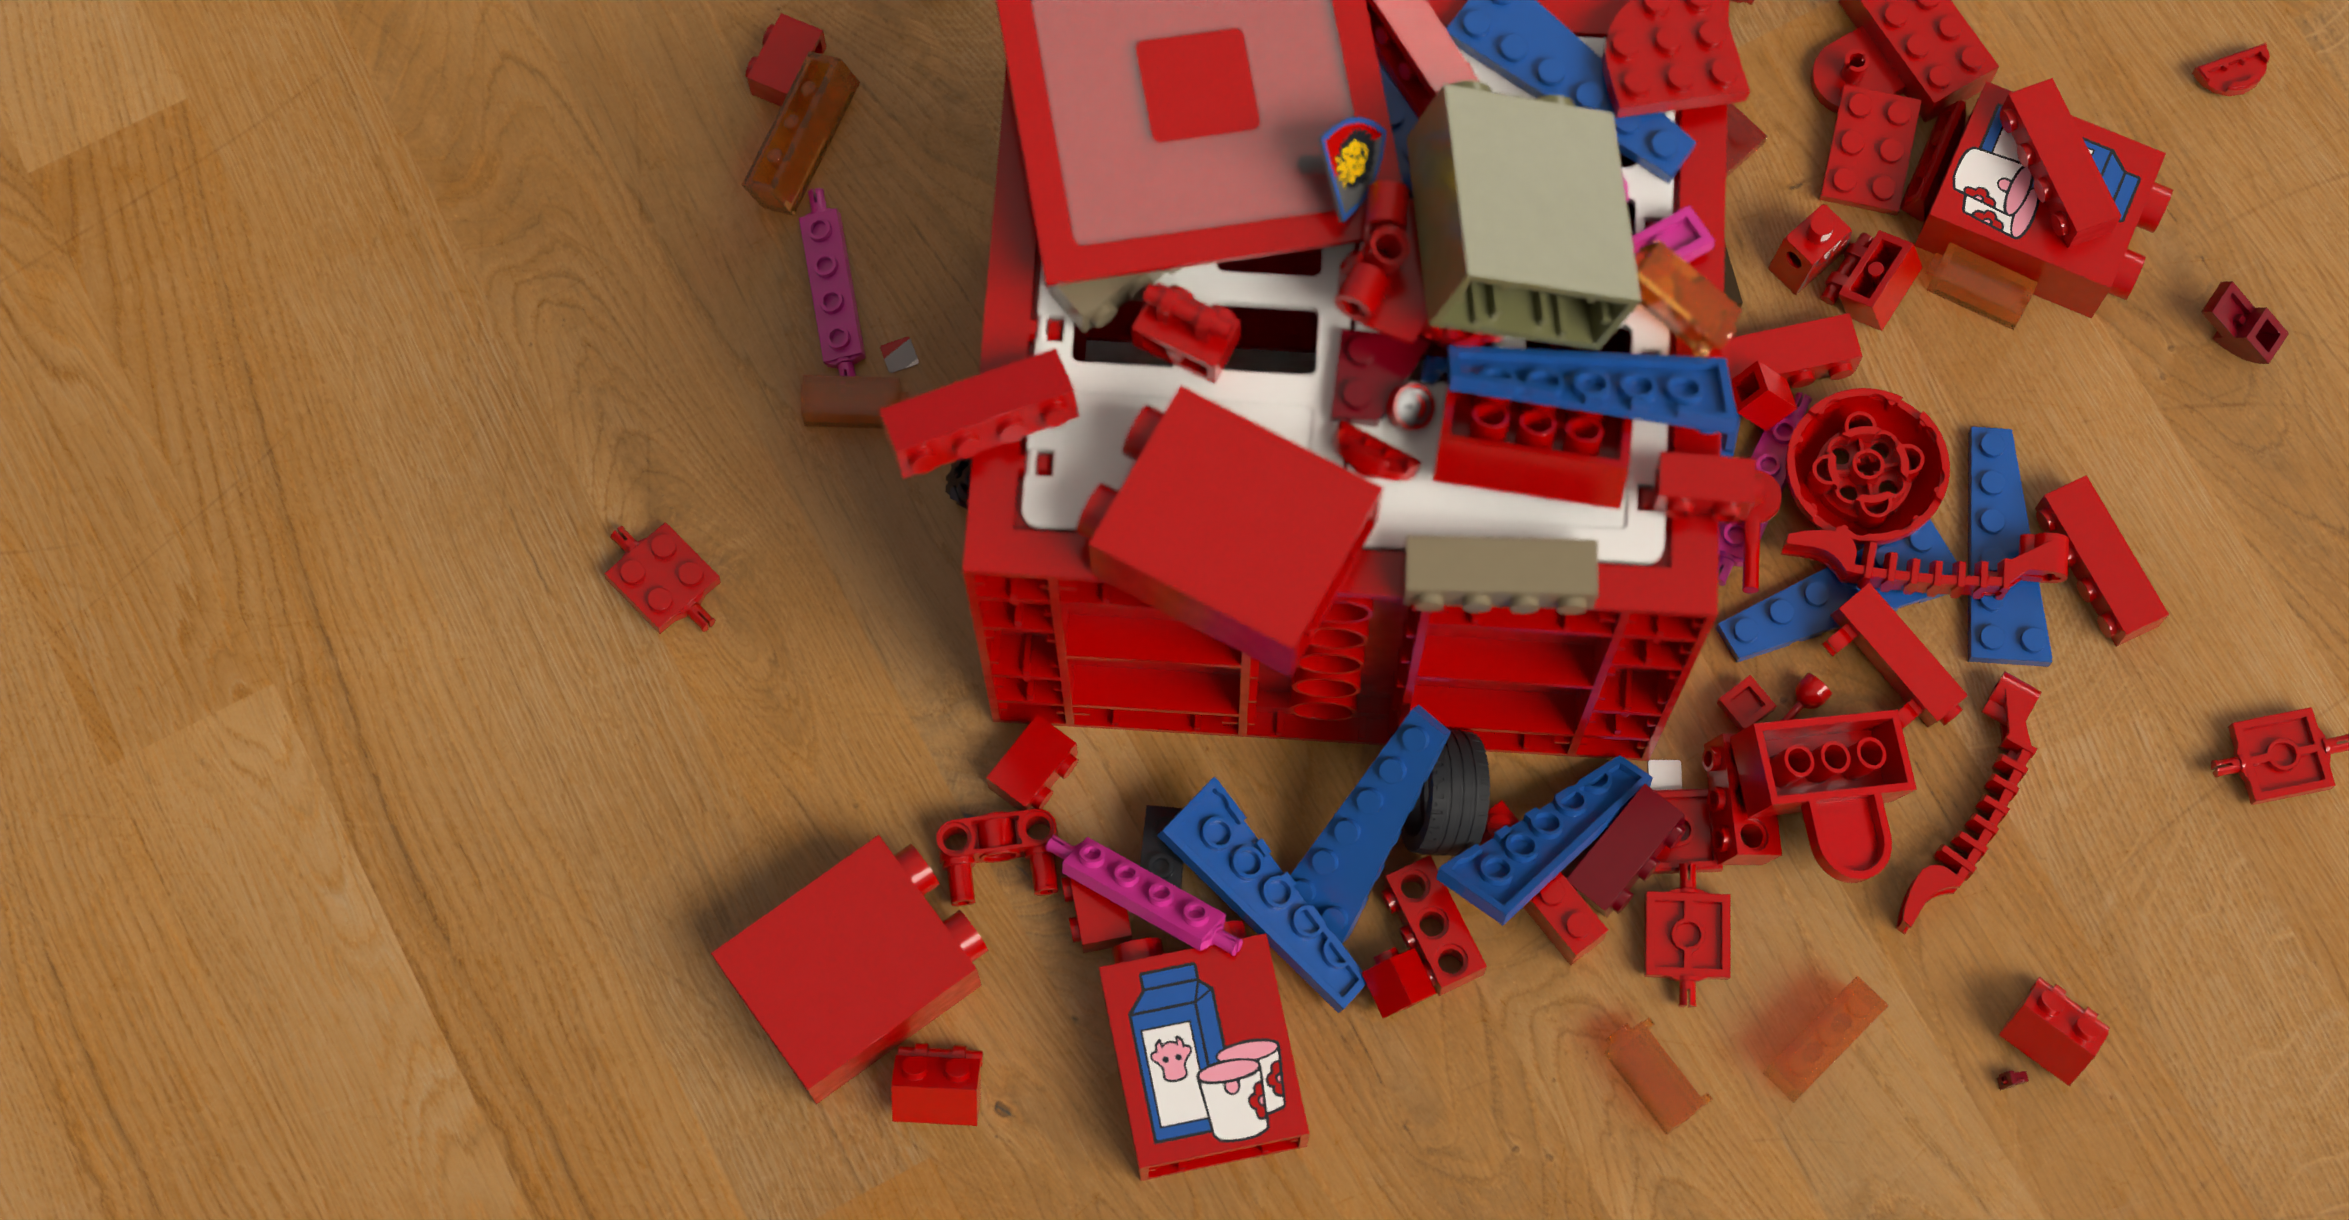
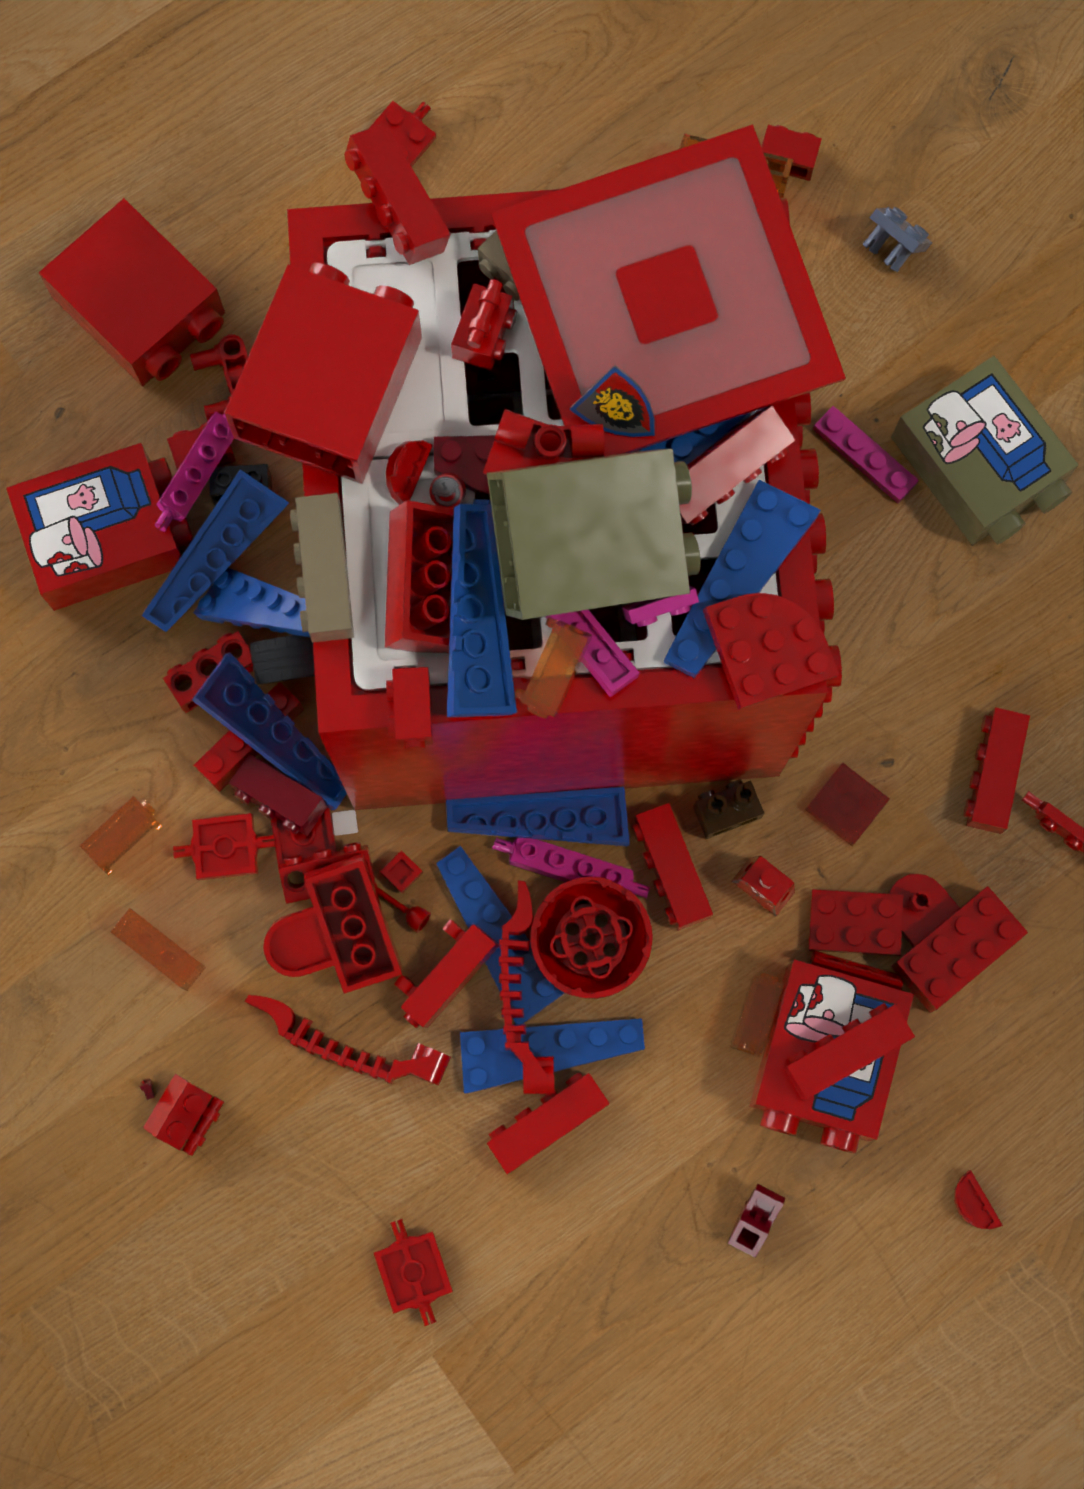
camera: 80 degrees right, 5 degrees up
(936, 1085) = (61, 363): red brick -> none
(1398, 981) = (166, 650): red brick -> none
(1759, 514) = (555, 858): red piece -> none
(1762, 396) = (634, 854): red brick -> none
(1873, 277) = (747, 932): red brick -> none

